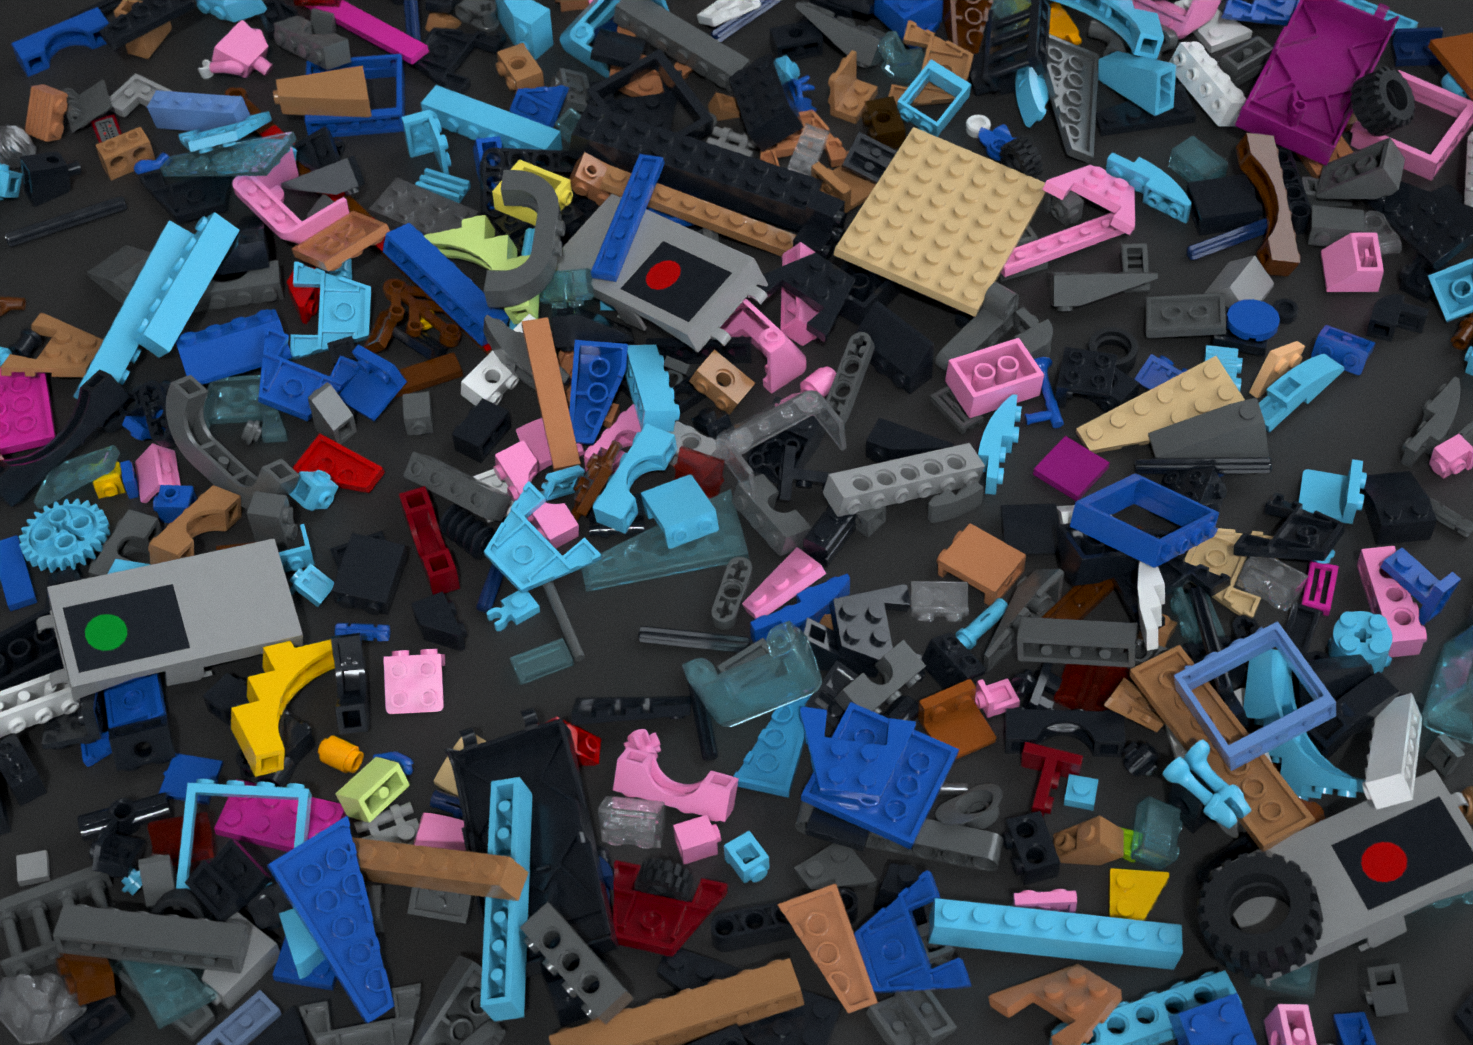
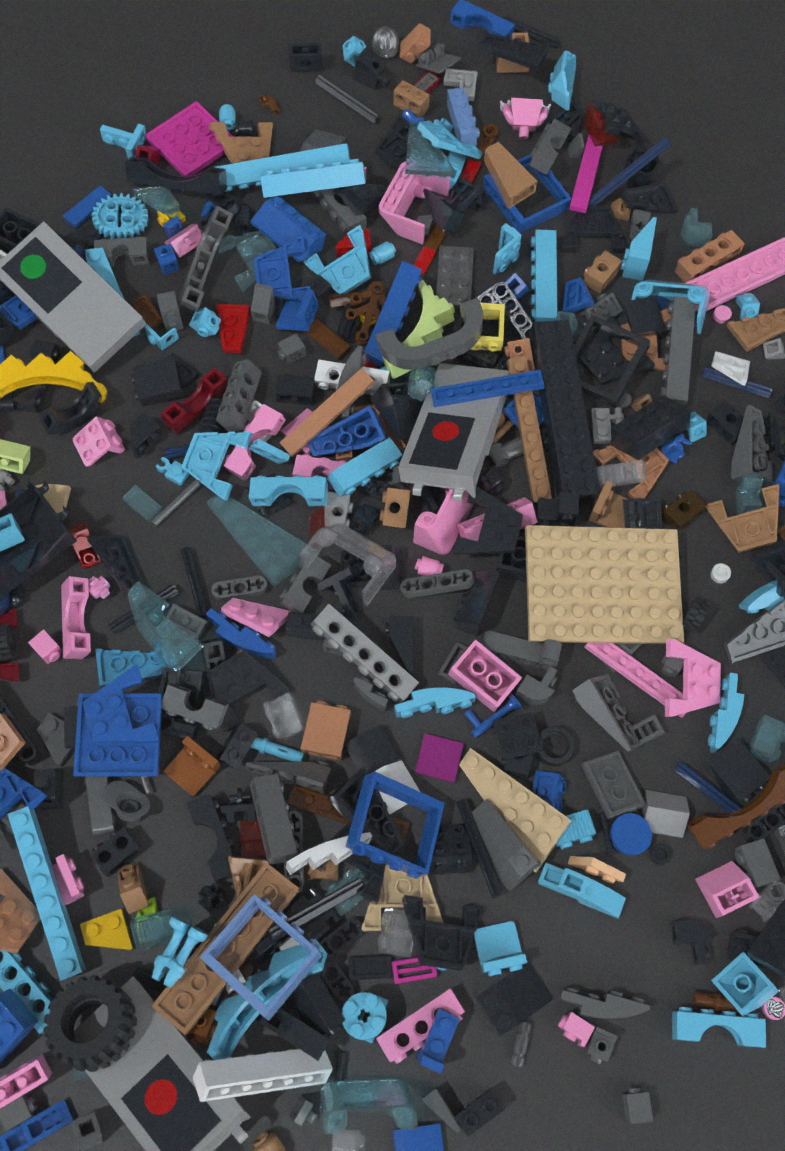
camera: 60 degrees right, 15 degrees up
(212, 511) = (125, 271): medium nougat arch -> none
(251, 432) = (236, 269): dark grey plate -> none
(311, 584) = (140, 354): medium azure bracket -> none
(340, 754) = (30, 428): light orange brick -> none
(341, 241) = (392, 241): nougat plate -> none
(367, 631) = (122, 398): blue axle -> none
(404, 761) = (39, 460): blue arm -> none
(444, 182) = (482, 264): medium azure tile -> none
(598, 472) = (274, 466): reddish brown plate -> none
(632, 822) = (41, 604): clear slope -> none
(680, 510) = (280, 528): medium azure panel -> none
(747, 850) = (41, 676): medium azure brick -> none
(847, 93) = (699, 475): medium nougat bracket -> none
(946, 81) = (719, 516): medium azure window -> none
(994, 140) = (714, 593): blue plate -> none
(995, 697) = (223, 782): bright pink bracket -> none
(1052, 764) = (173, 842): dark red bracket -> none
(1081, 792) = (175, 867): medium azure plate -> none
(1343, 348) = (643, 910): blue bracket -> none

